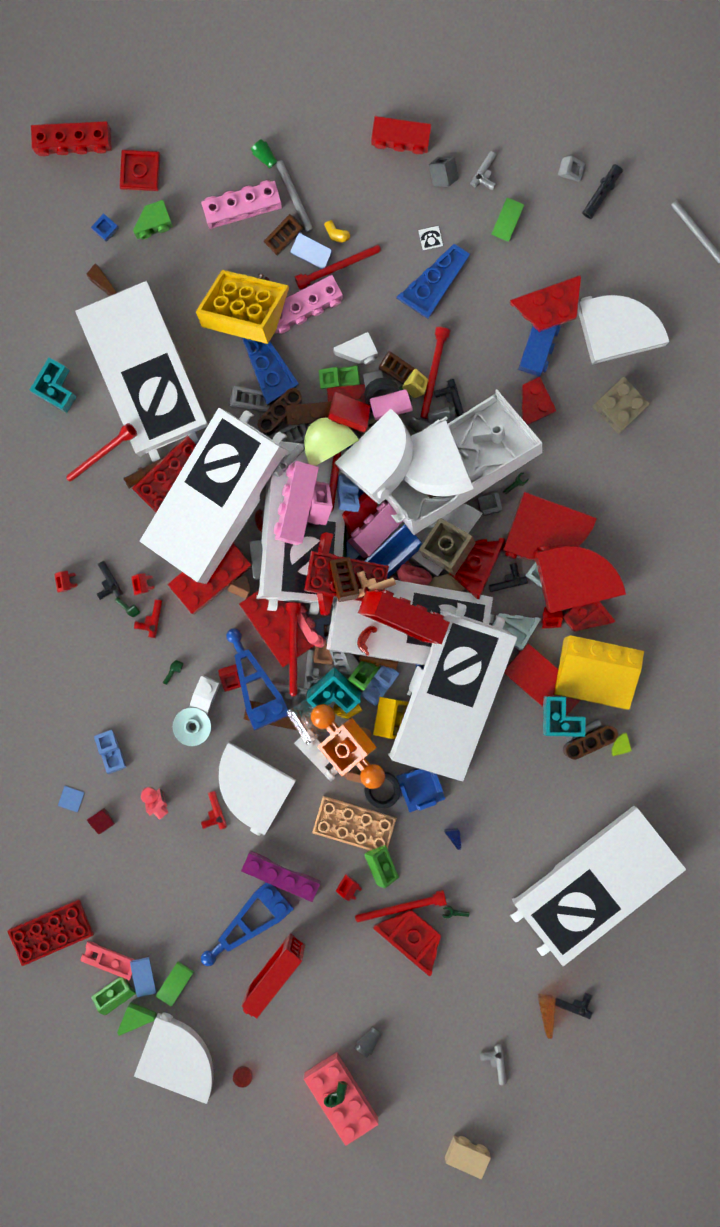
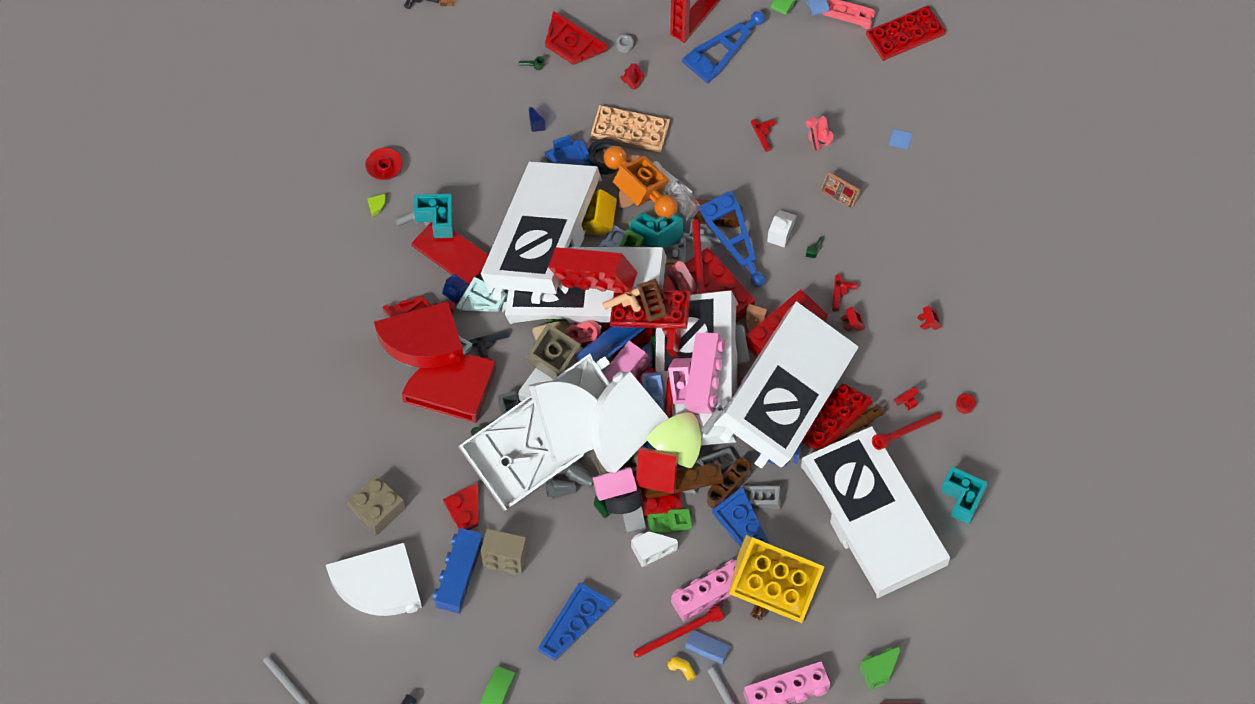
camera: 175 degrees right, 25 degrees down
(41, 489) = (965, 403): none -> red tile
(97, 277) = (930, 604): reddish brown slope -> none
(97, 494) = (907, 399): none -> red tile
(100, 821) = (870, 121): dark red slope -> none
(104, 227) = (931, 655): blue tile -> none
(108, 583) = (887, 321): black hose -> none
(110, 751) = (867, 178): medium blue slope -> none
(132, 611) = (861, 296): dark green hand -> none
(140, 736) = (840, 190): none -> slope
(184, 733) = (794, 193): light aqua dish -> none
(229, 678) = (760, 245): red slope -> none
(252, 788) = (728, 152): white brick -> none
(279, 229) = (729, 672): reddish brown slope -> none
(283, 878) = (714, 86): magenta arch -> none
(354, 933) = (624, 43): none -> light grey tile
(363, 638) = (632, 254): clear red piece -> none
(381, 866) = (602, 94): bright green slope -> none
(389, 371) = (617, 544): reddish brown slope -> none
(416, 384) = (589, 518): light yellow slope -> none
(430, 238) = (580, 669): white sticker -> none
(437, 899) = (548, 72): red piece -> none
(441, 336) = (564, 567): red piece -> none
(451, 396) = (552, 510): black hose -> none
(478, 566) = (518, 344): red wing -> none
(499, 346) = (504, 551): none -> dark tan brick
(541, 640) = (454, 288): none -> clear blue slope
(551, 304) = (451, 593): red wing -> none
(597, 886) = (399, 84): white piece -> none
(598, 672) = (399, 261): yellow slope -> none
(600, 742) = (397, 202): reddish brown beam -> none
(623, 794) = (380, 158): none -> red dish

